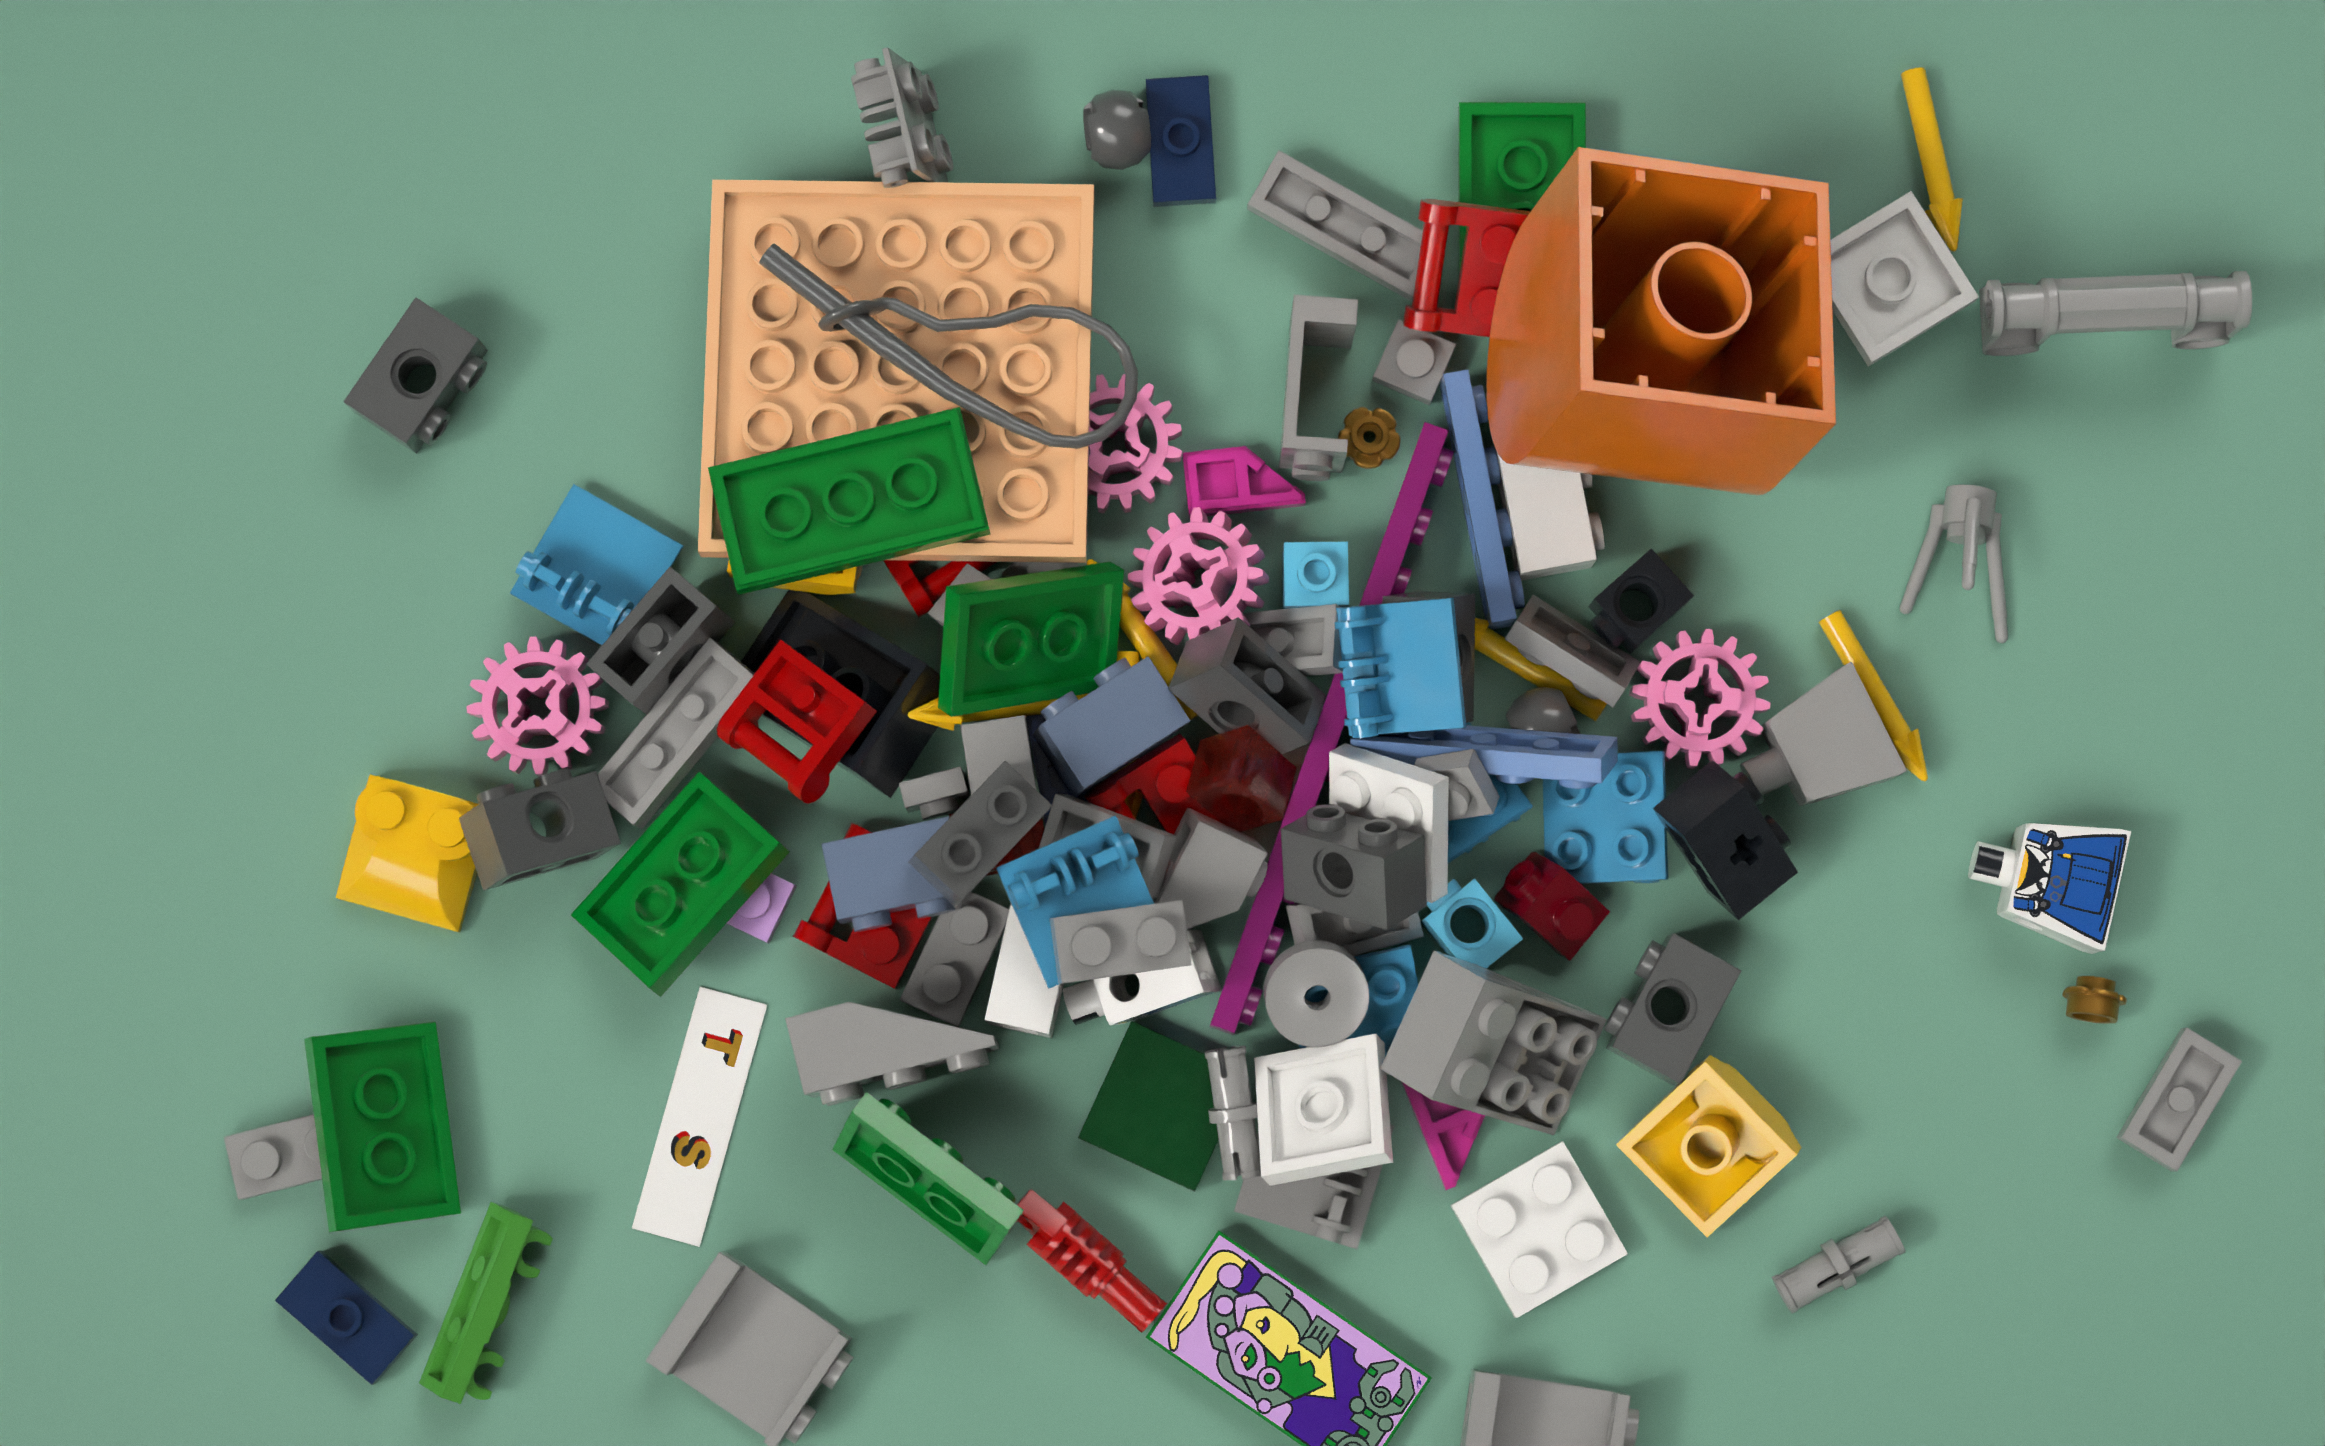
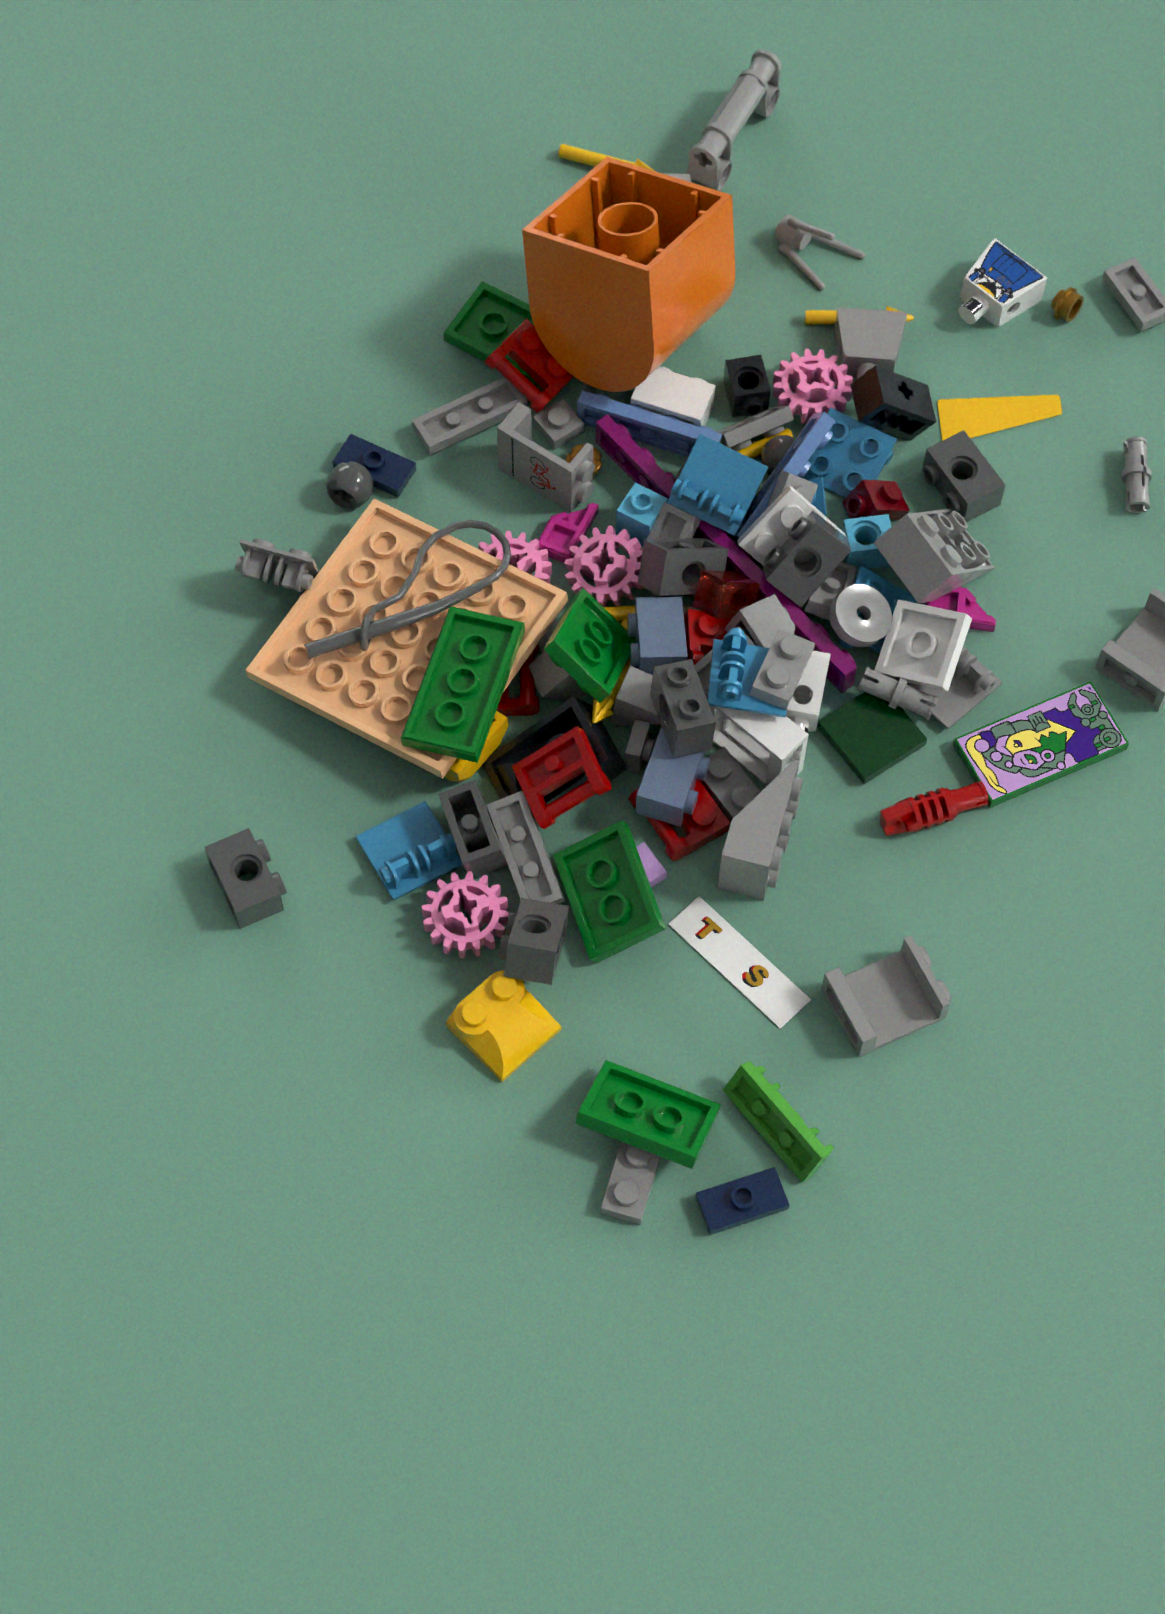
camera: 60 degrees left, 20 degrees down
(928, 1177) = (846, 850): green plate -> none
(1539, 1229) = (1040, 597): white plate -> none
(1711, 1143) = (1043, 494): yellow slope -> none
(1816, 975) = (994, 414): none -> yellow sticker

